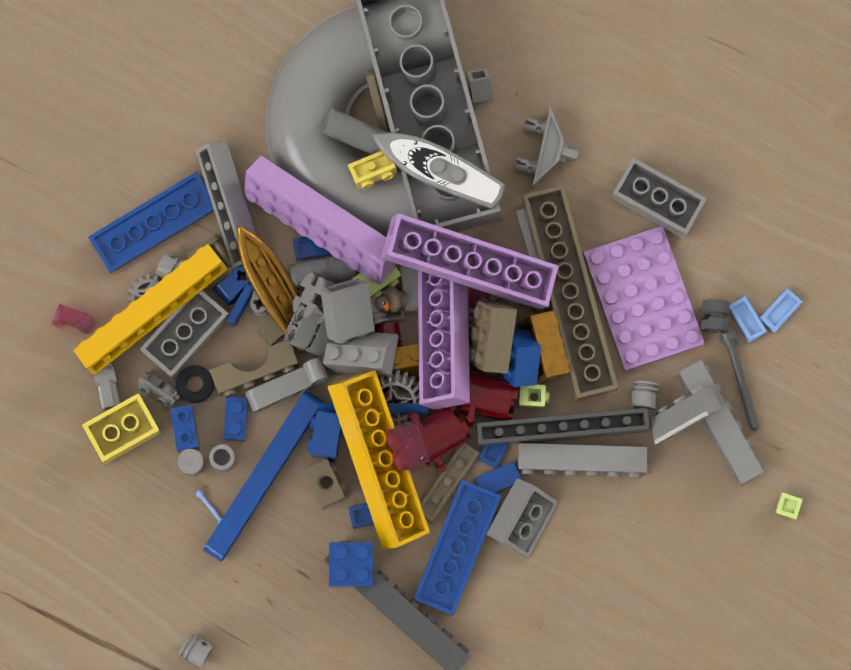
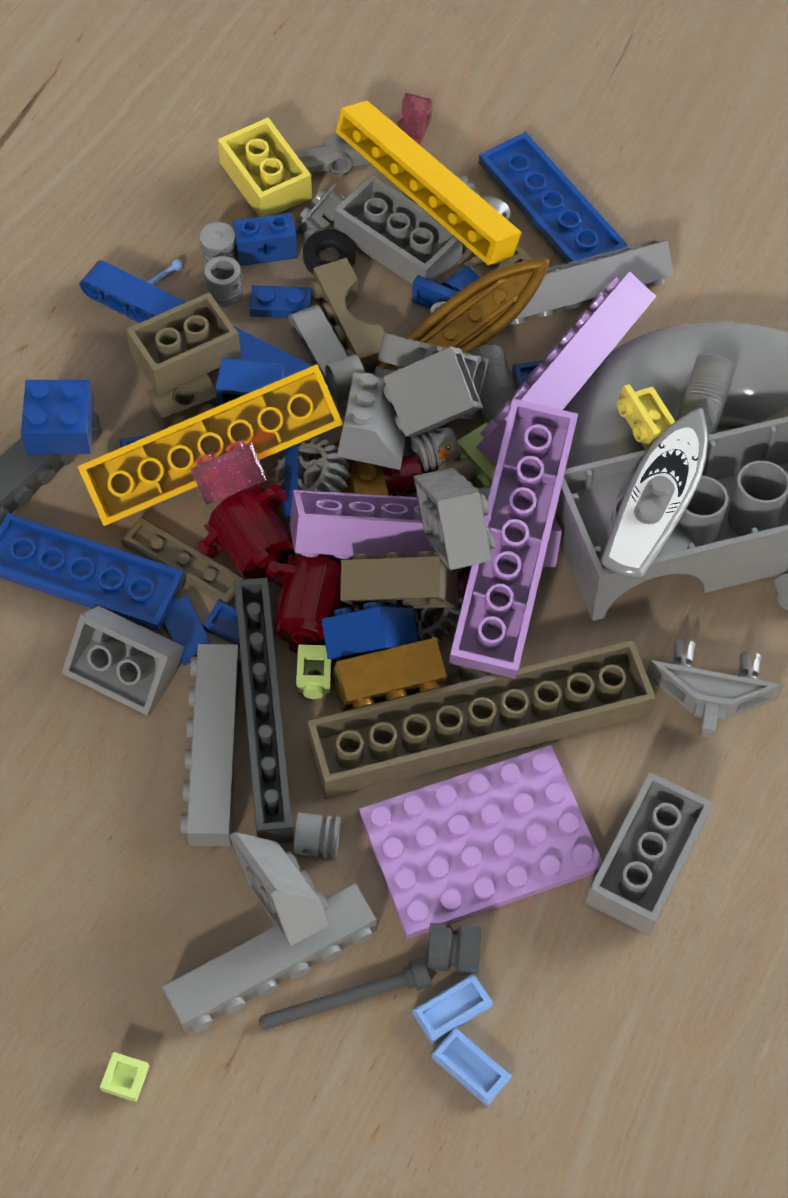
camera: 90 degrees right, 20 degrees down
(293, 480) = (183, 343): none -> dark tan brick
(474, 296) = (454, 518): none -> light grey brick

